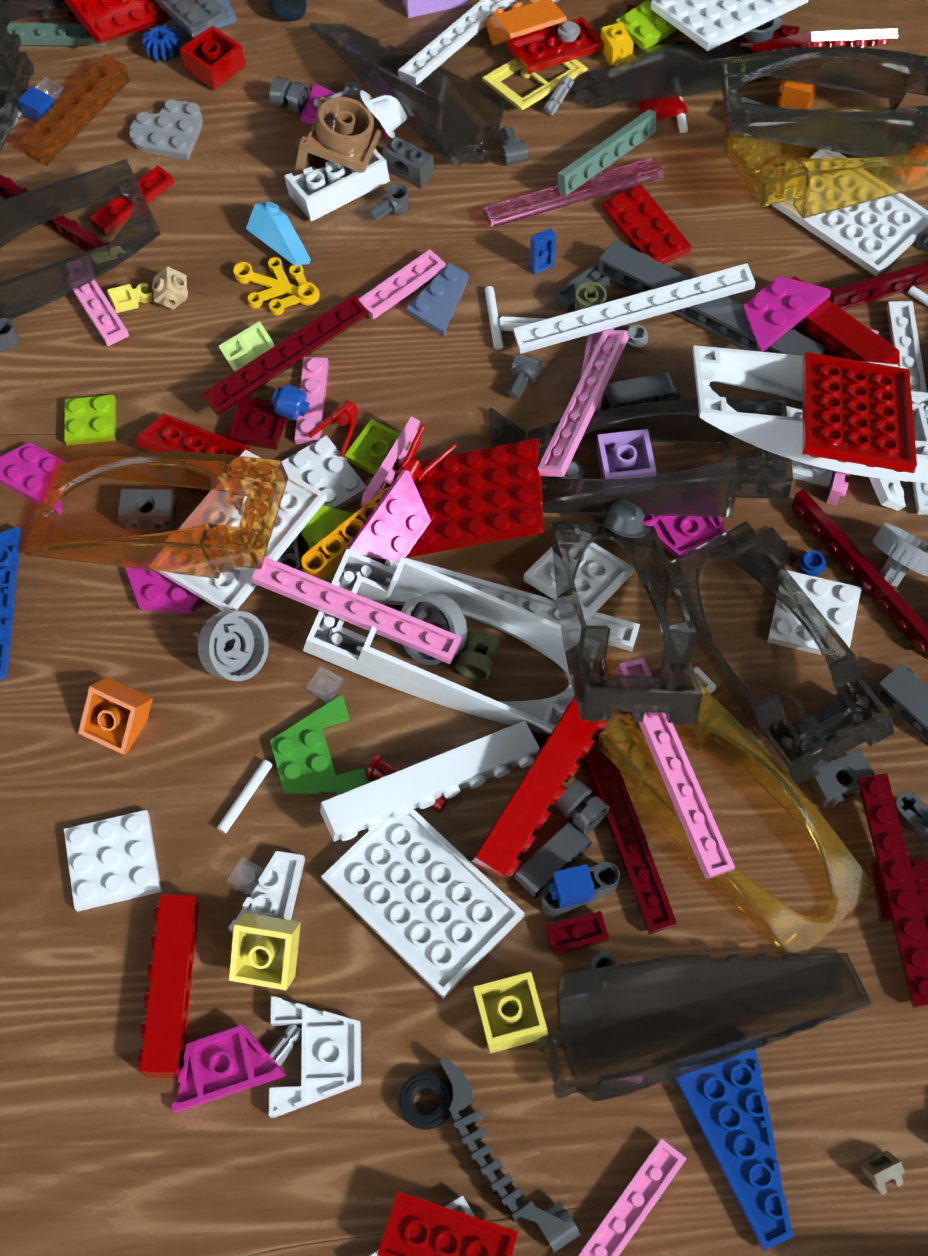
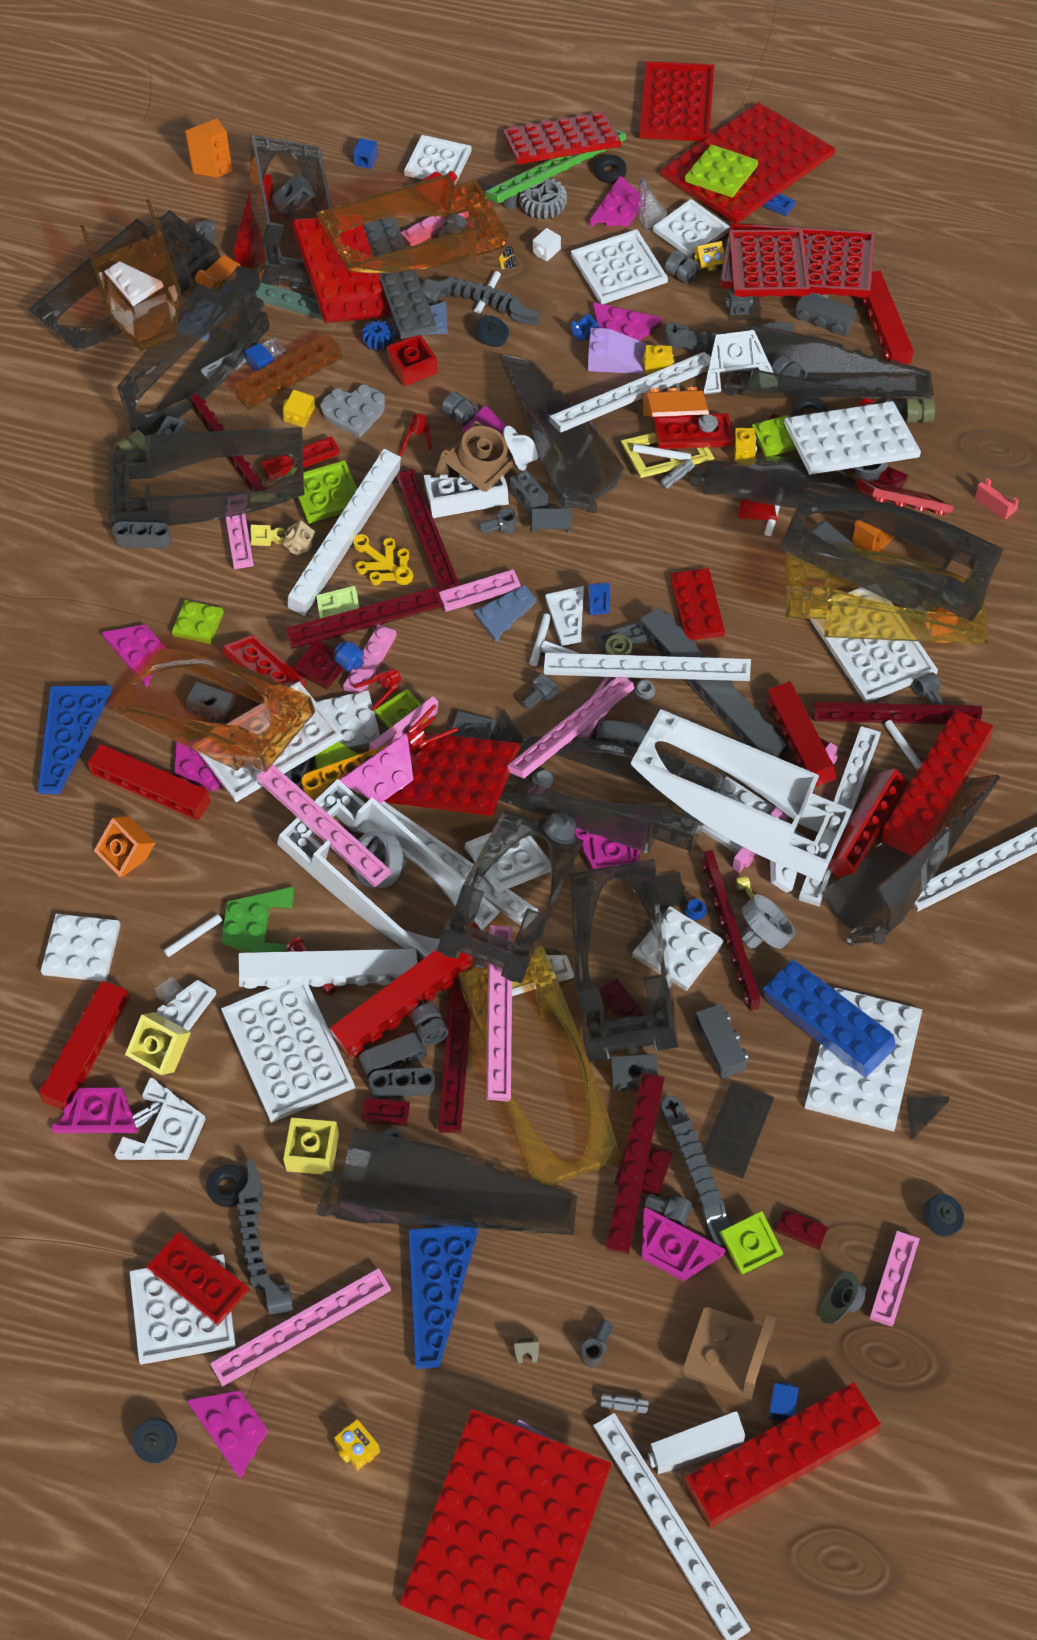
camera: 20 degrees right, 5 degrees down
(105, 145) = (298, 408): none -> yellow head
(112, 626) = (149, 782): none -> red brick
(184, 228) = (327, 491): none -> lime plate
(218, 646) = (216, 821): light grey piece -> none
(220, 267) = (343, 532): none -> white brick
(250, 127) = (417, 425): none -> red plant
(277, 232) = (400, 520): medium azure slope -> none
(315, 238) = (426, 530): none -> dark red plate
(325, 684) = (284, 875): clear plate -> none
(350, 89) = (511, 419): dark grey hinge -> none
(446, 182) = (551, 519): none -> dark grey hinge
(466, 437) = (473, 726): none -> dark grey tile
(477, 656) = (404, 891): olive wheel -> none
(510, 280) = (566, 613): none -> white wing
(512, 149) = (619, 506): dark grey axle -> none
(532, 77) = (661, 452): none -> white bar
(551, 199) = (651, 558): clear pink plate -> none
(572, 886) = (392, 1074): blue brick -> none
(607, 152) = (691, 534): sand green plate -> none
(625, 455) = (586, 779): lavender brick -> none
(780, 308) = (763, 703): dark pink wing -> none
(794, 704) = (619, 1000): none -> dark red plate
(851, 515) = (744, 883): none -> light yellow hand
(857, 413) = (754, 798): red plate -> none
(907, 29) = (995, 501): none -> coral hinge

